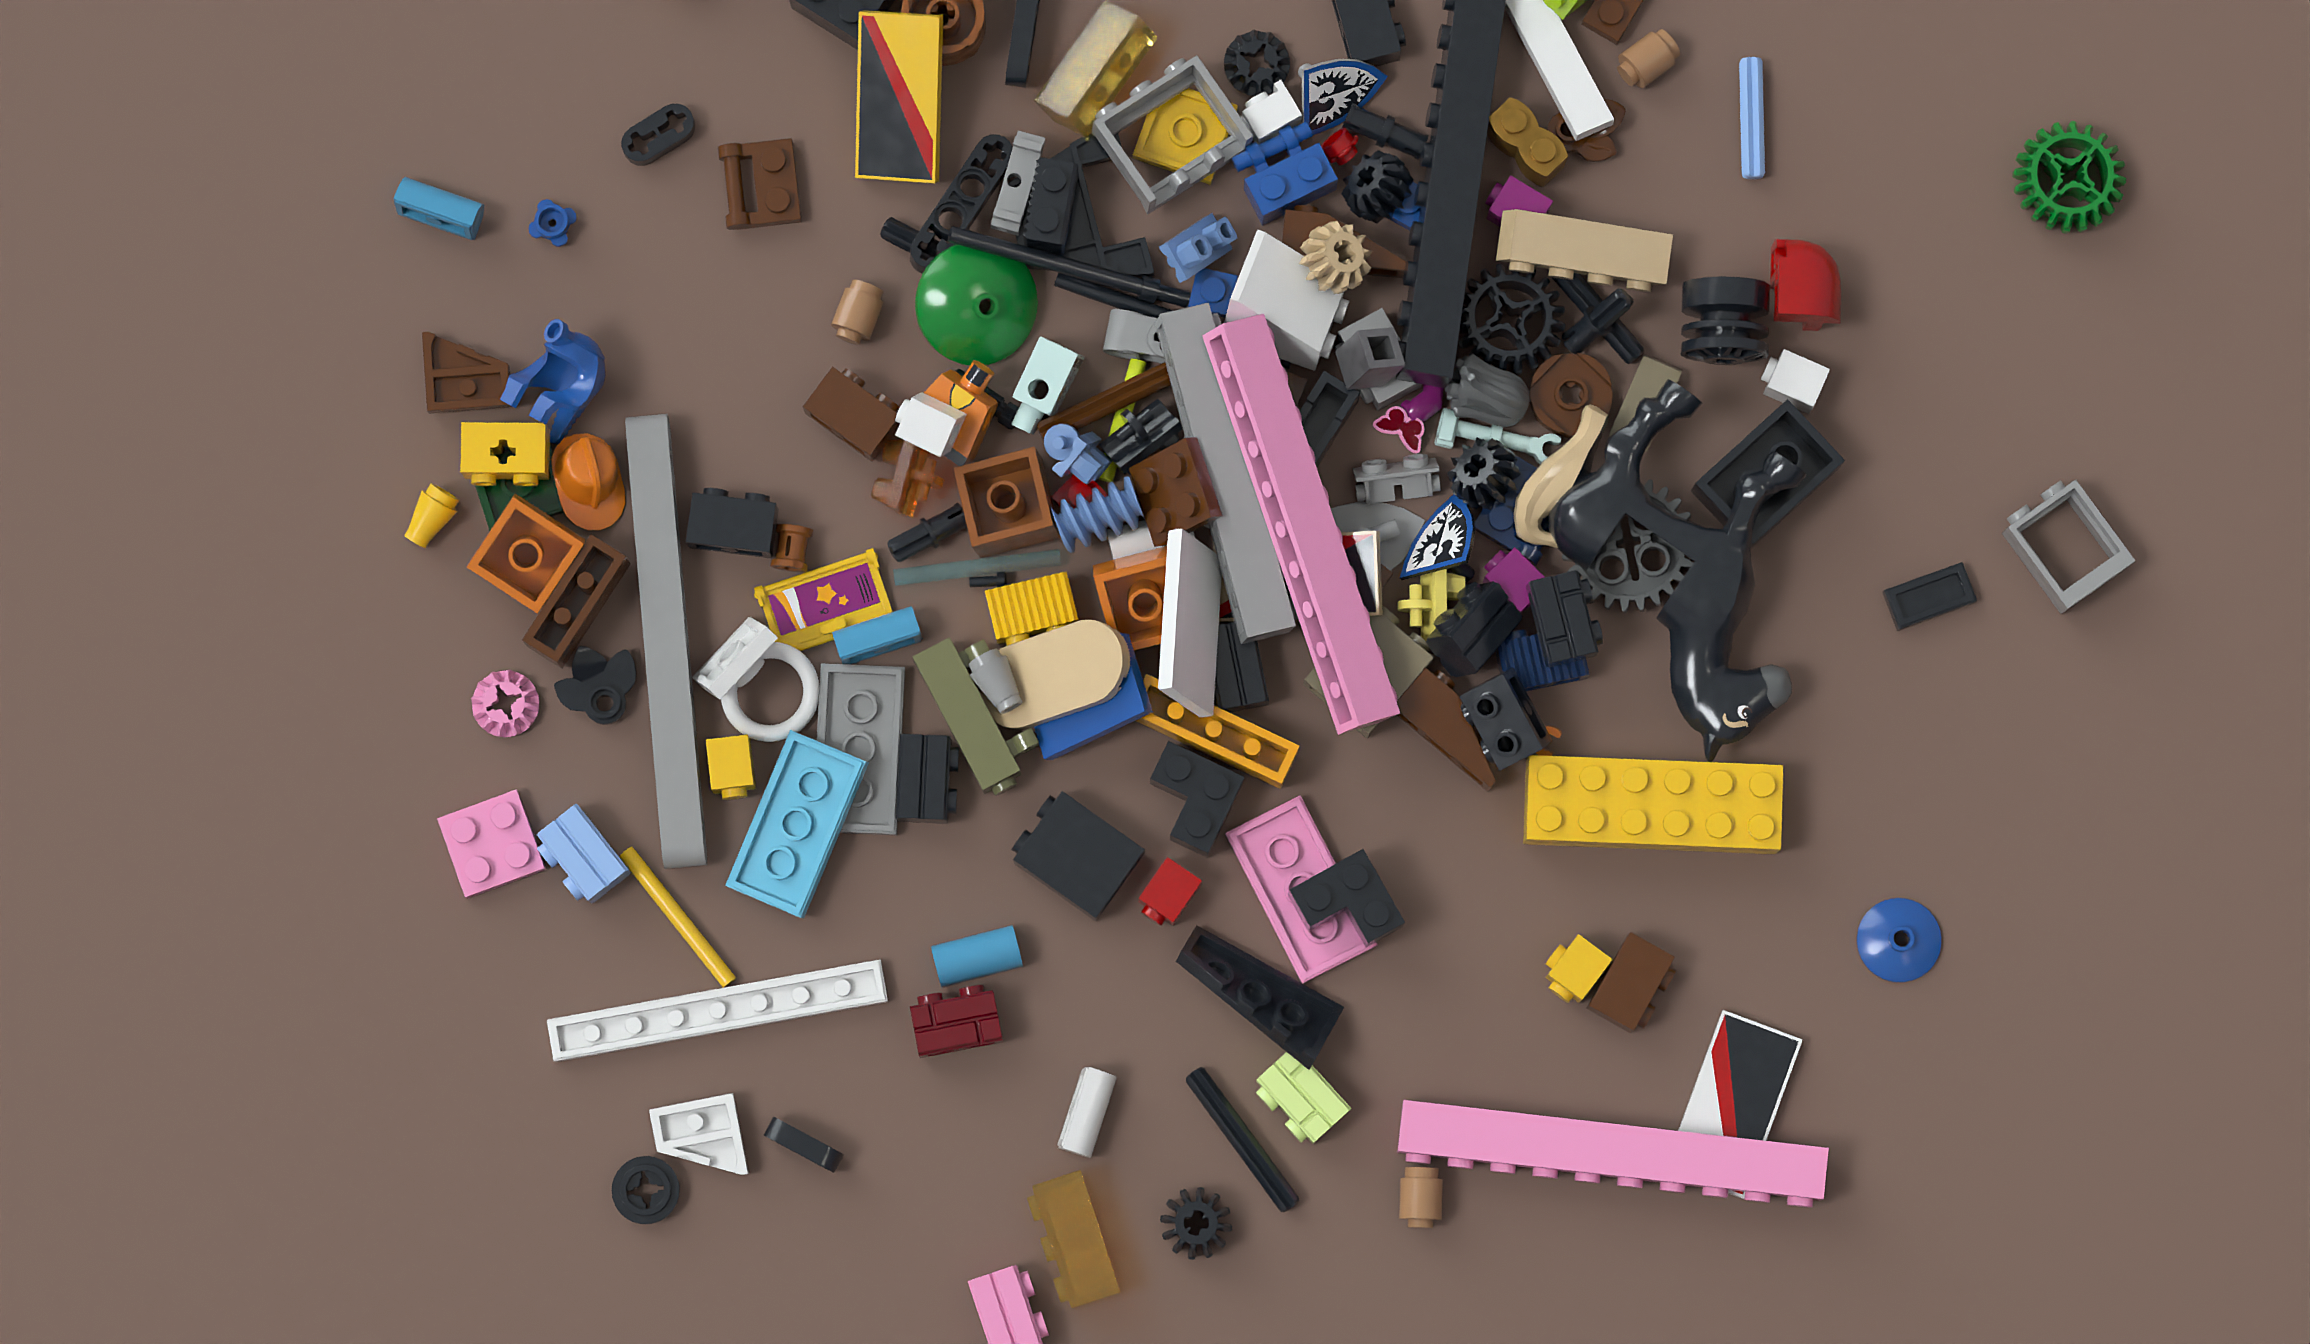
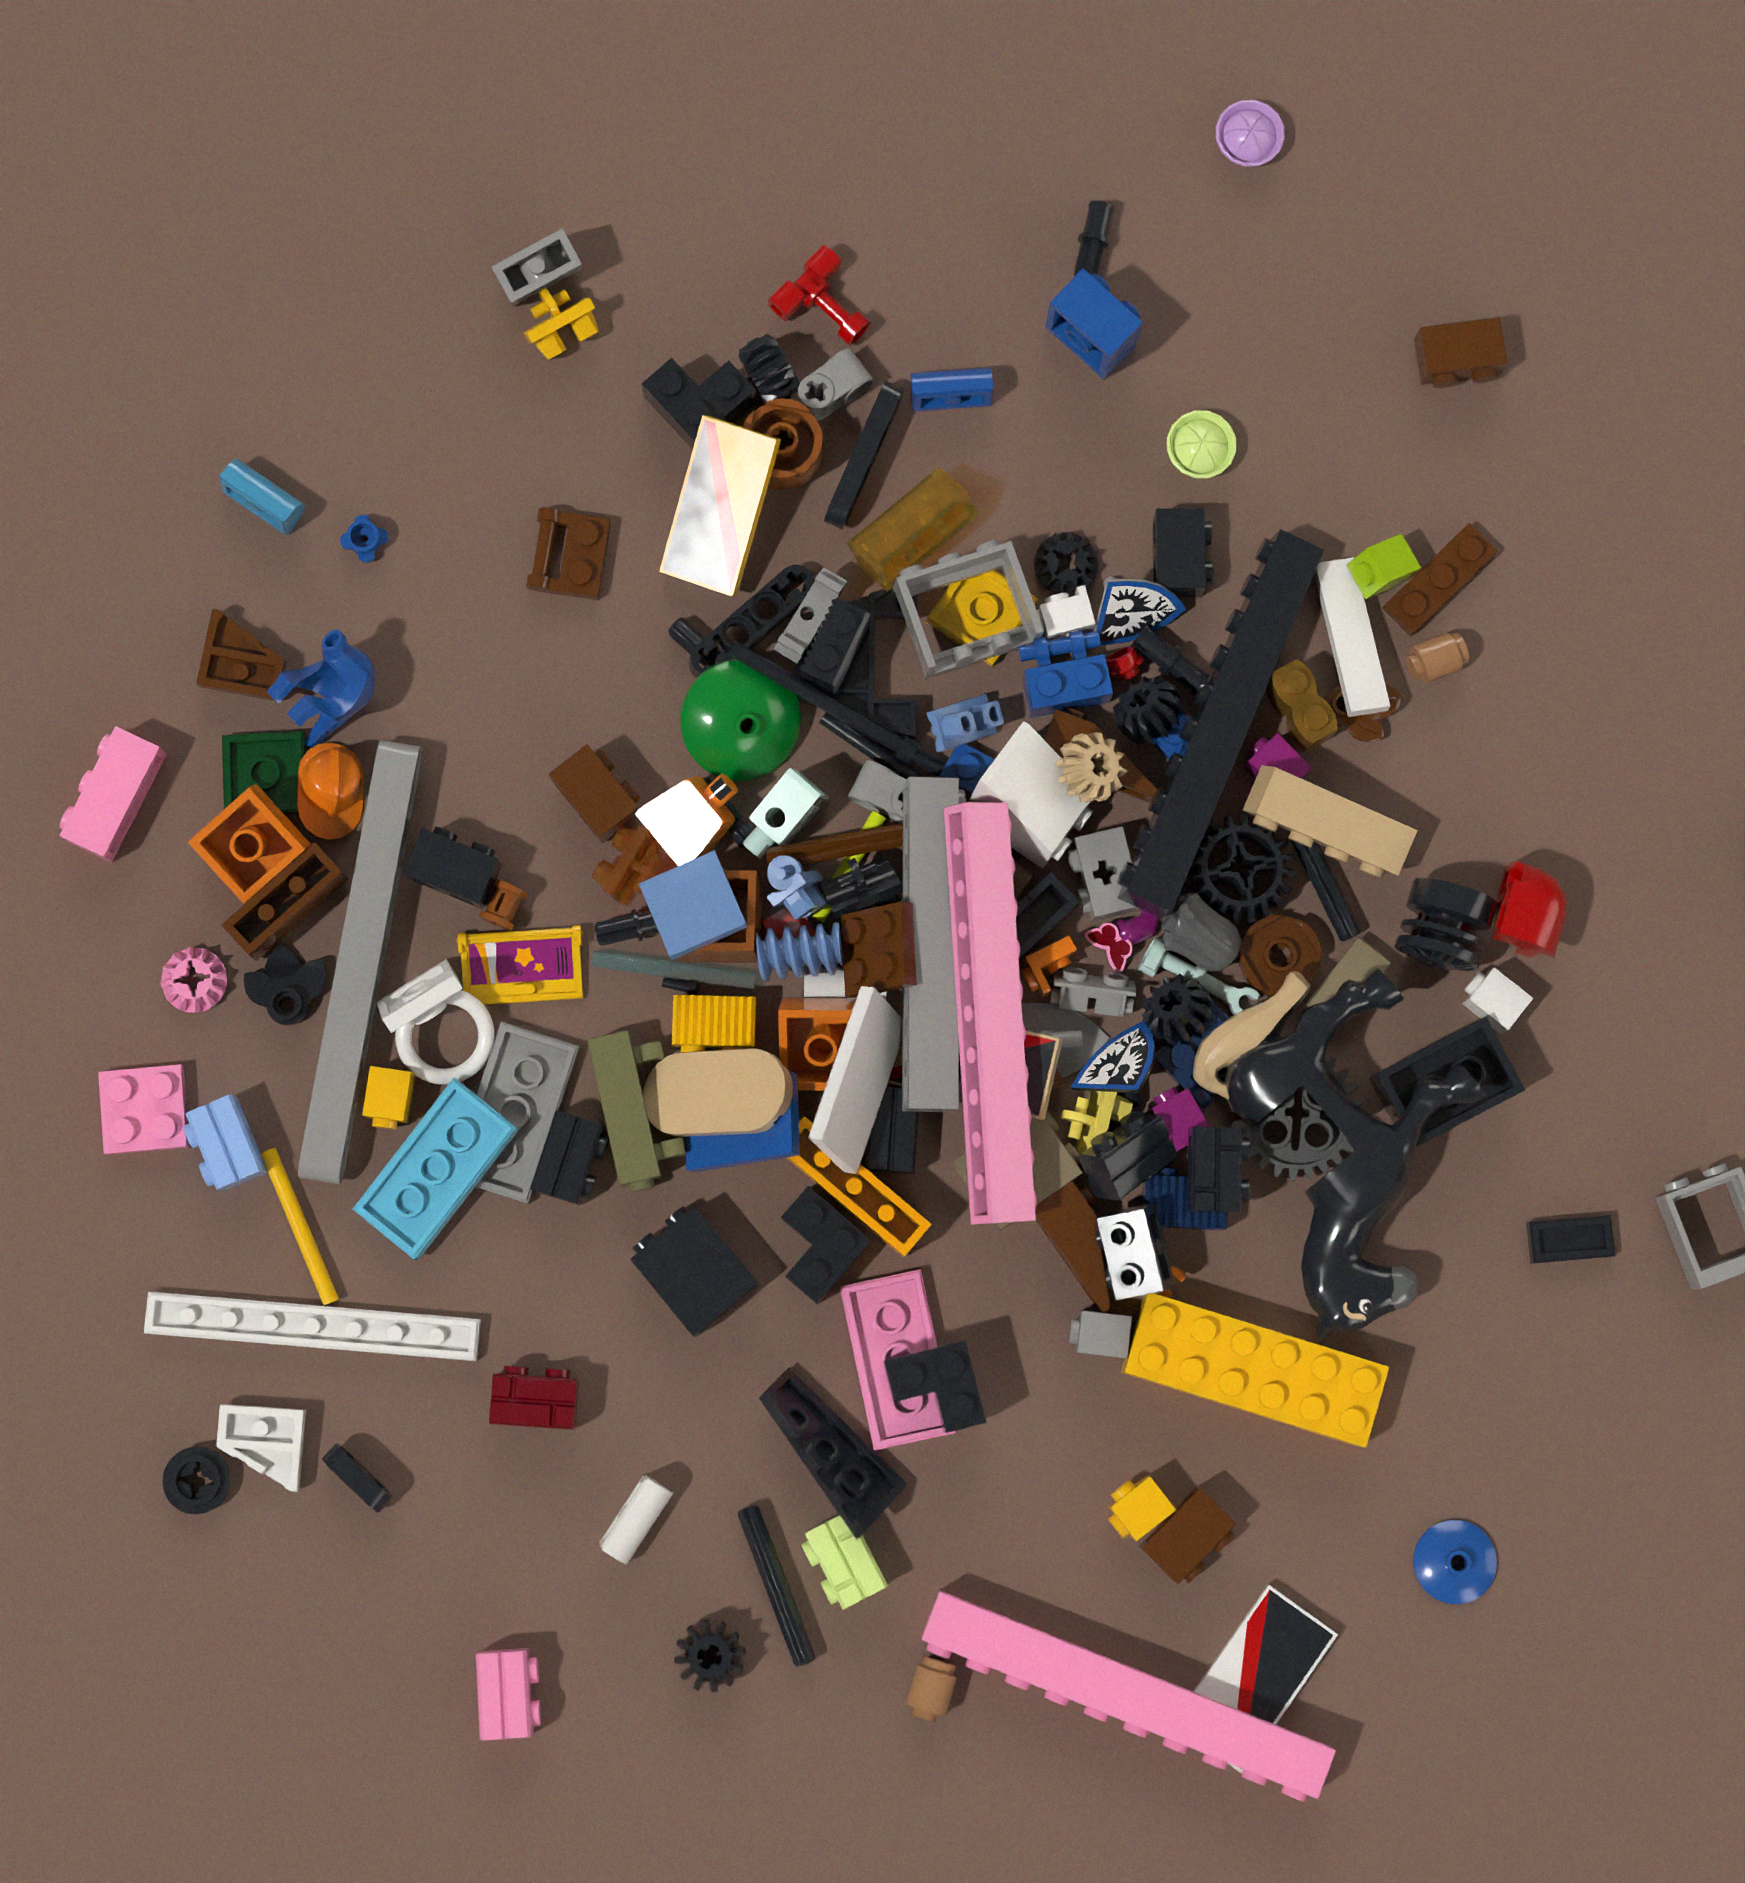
camera: 10 degrees right, 0 degrees up
(373, 541) = (112, 793): none -> bright pink brick
(431, 514) = (173, 782): yellow cone -> none
(484, 440) = (239, 727): yellow brick -> none
(652, 126) = (483, 473): black beam -> none
(857, 312) = (626, 698): medium nougat brick -> none
(877, 636) = (561, 1010): dark azure brick -> none
(929, 423) = (662, 822): white brick -> none
(977, 956) = (572, 1340): dark azure brick -> none
(981, 496) = (693, 905): none -> medium blue tile
(995, 679) = (660, 1083): light grey cone -> none
(1073, 1240) = (589, 1640): clear yellow brick -> none
(1168, 893) = (769, 1330): red brick -> none
(1347, 455) = (1053, 957): none -> orange bracket
(1370, 358) = (1098, 872): flat silver brick -> none
(1494, 810) = (1100, 1334): none -> light grey brick
(1597, 321) = (1323, 893): black axle -> none
(1752, 118) = (1520, 739): light blue axle -> none

